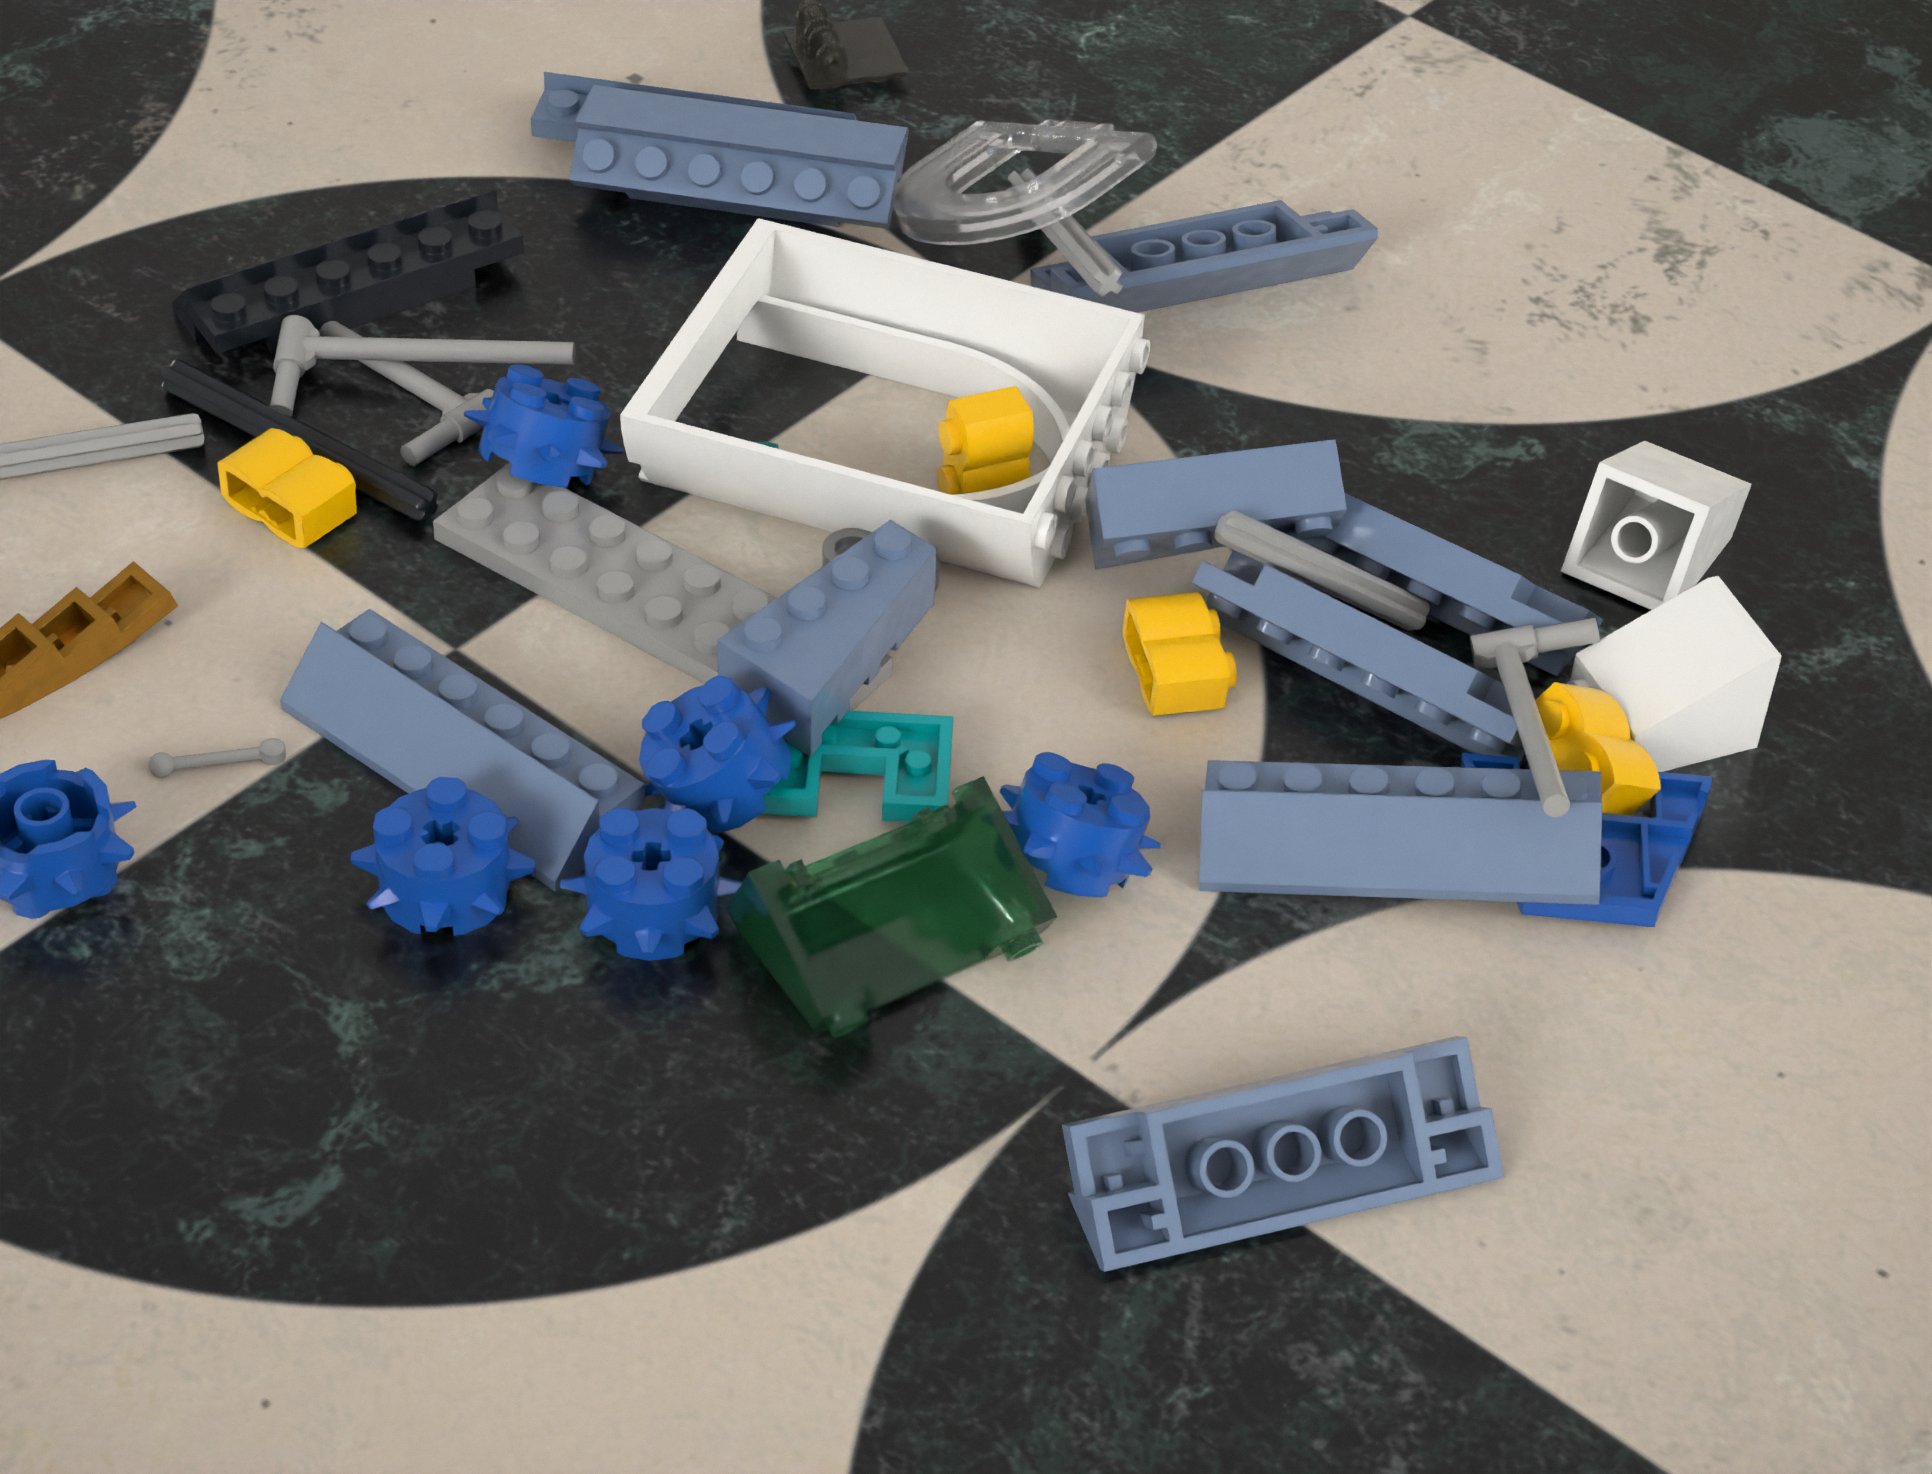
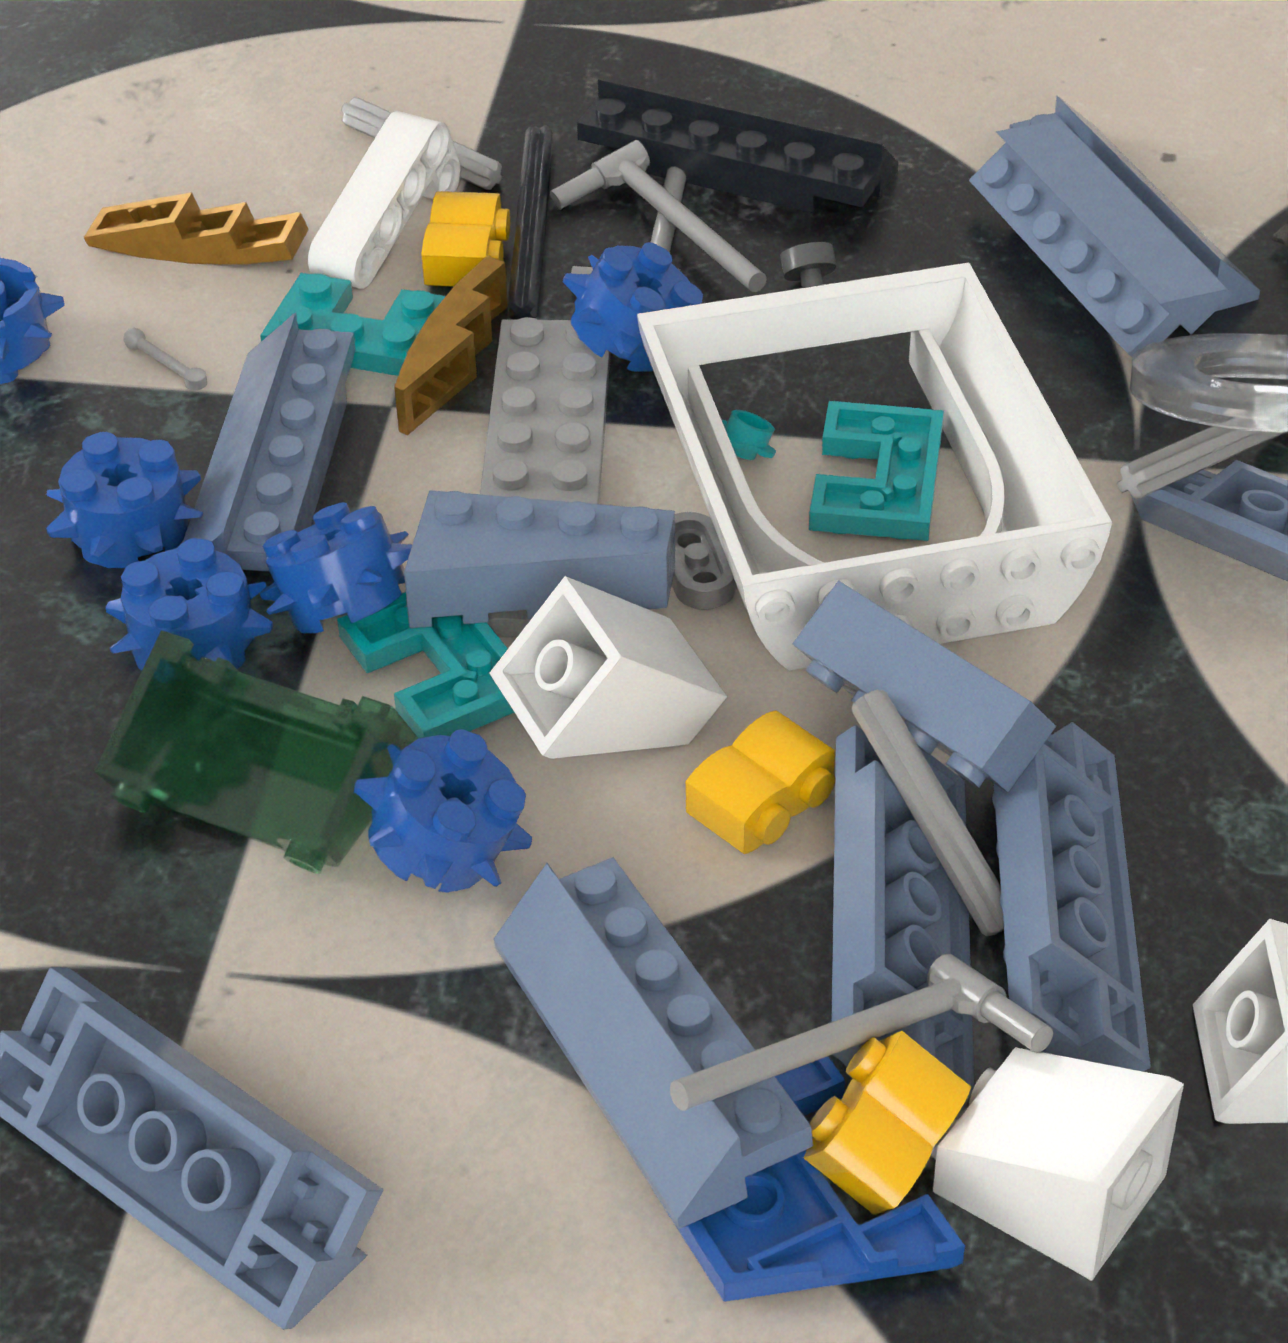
camera: 60 degrees right, 0 degrees up
(166, 464) = (402, 164): none -> white beam
(360, 580) = (378, 343): none -> teal plate
(439, 570) = (446, 346): none -> pearl gold slope
(573, 319) = (808, 263): none -> dark grey tile
(863, 387) = (902, 494): none -> teal plate
(985, 442) = (869, 517): yellow brick -> none
(1004, 673) = (604, 677): none -> white slope

